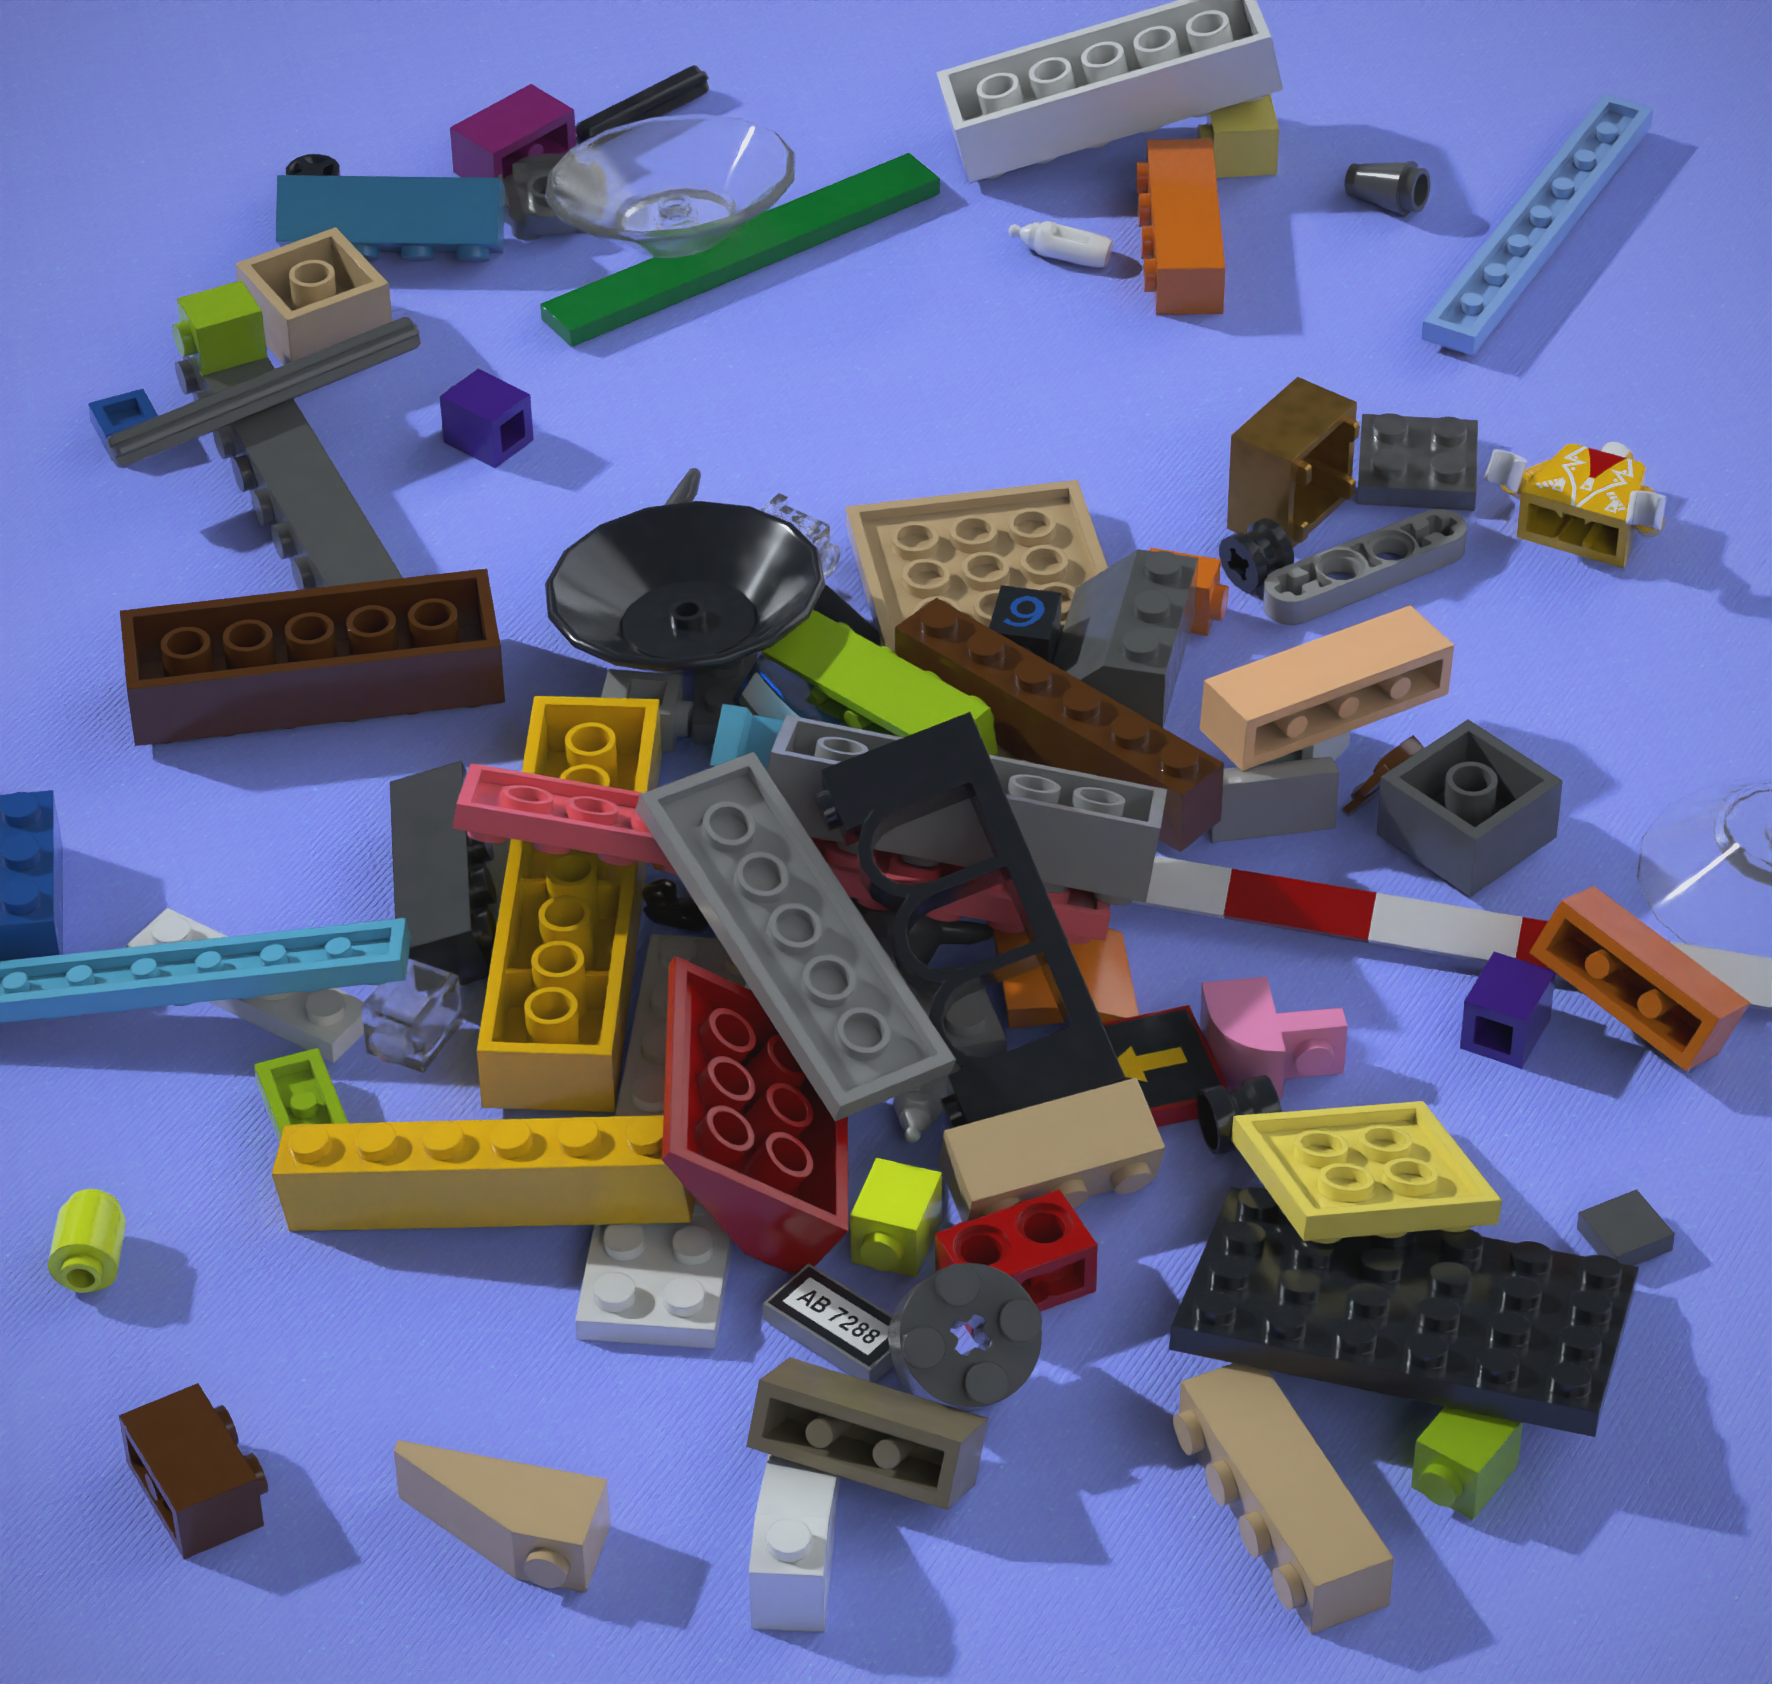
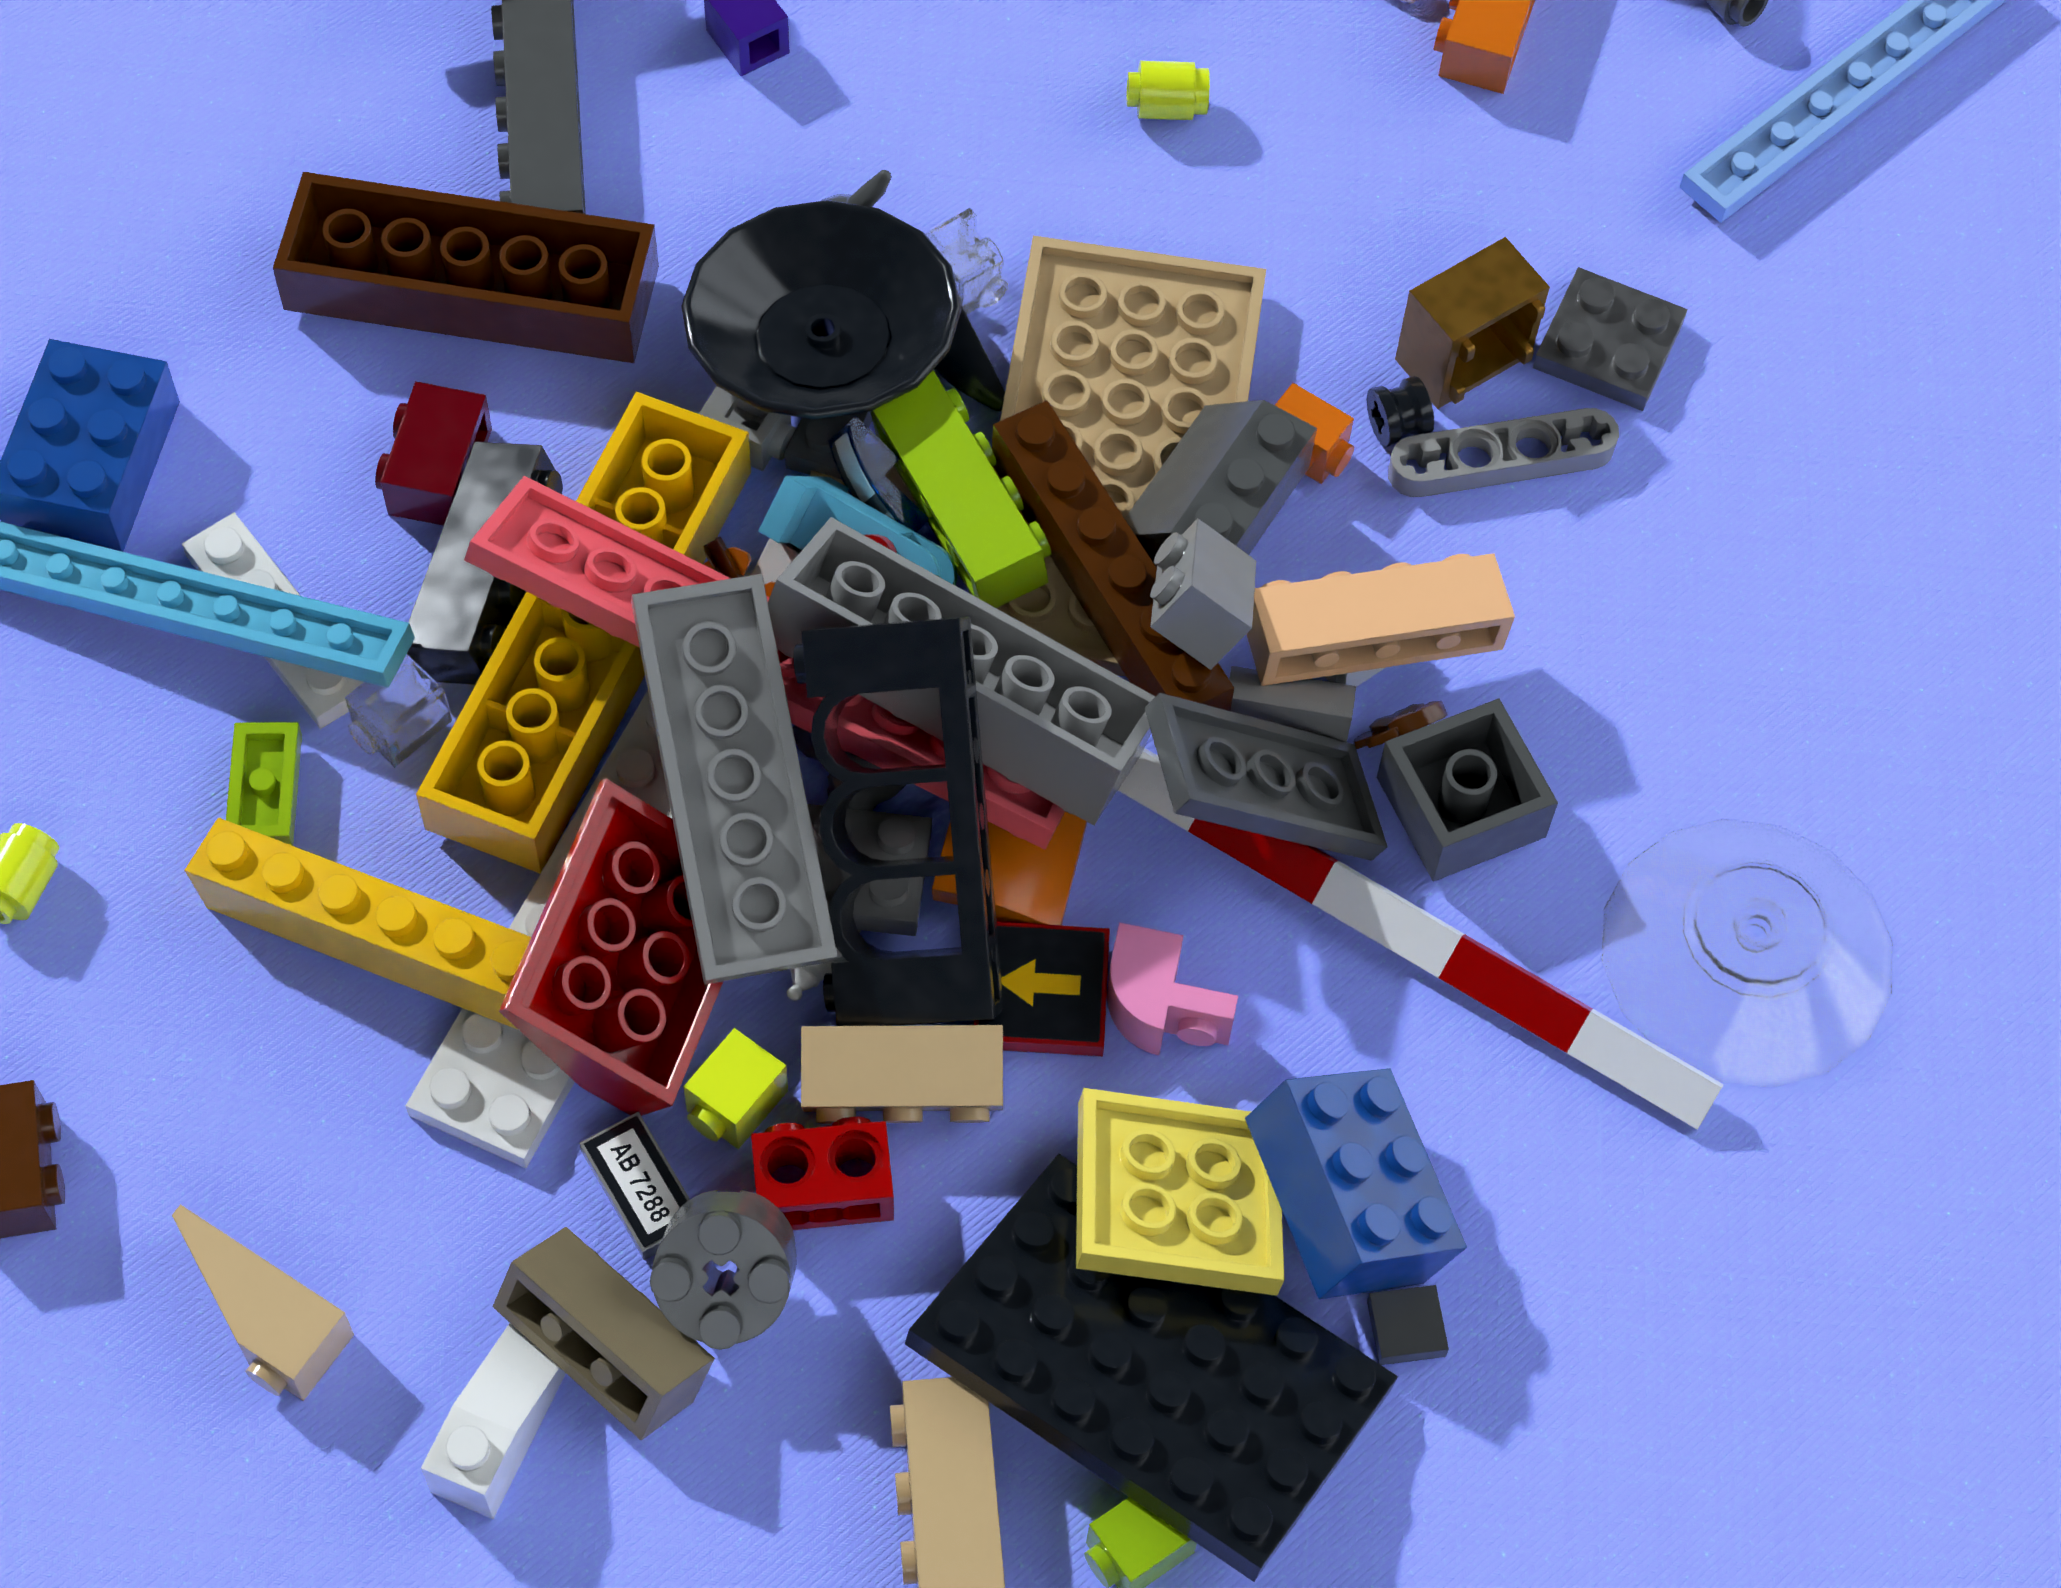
camera: 15 degrees right, 20 degrees up
(348, 812) = (431, 450): none -> dark red brick
(915, 374) = (1168, 90): none -> neon yellow brick
(1029, 619) = (1128, 452): black brick -> none
(1162, 690) = (1203, 593): none -> light grey brick
(1218, 1106) = (1108, 1071): black wheel -> none
(1283, 831) = (1264, 777): none -> dark grey plate
(1507, 1010) = (1405, 1032): dark purple brick -> none
(1526, 1116) = (1354, 1182): none -> blue brick
(1582, 500) = (1745, 442): yellow torso -> none
(1639, 978) = (1535, 1053): orange brick -> none

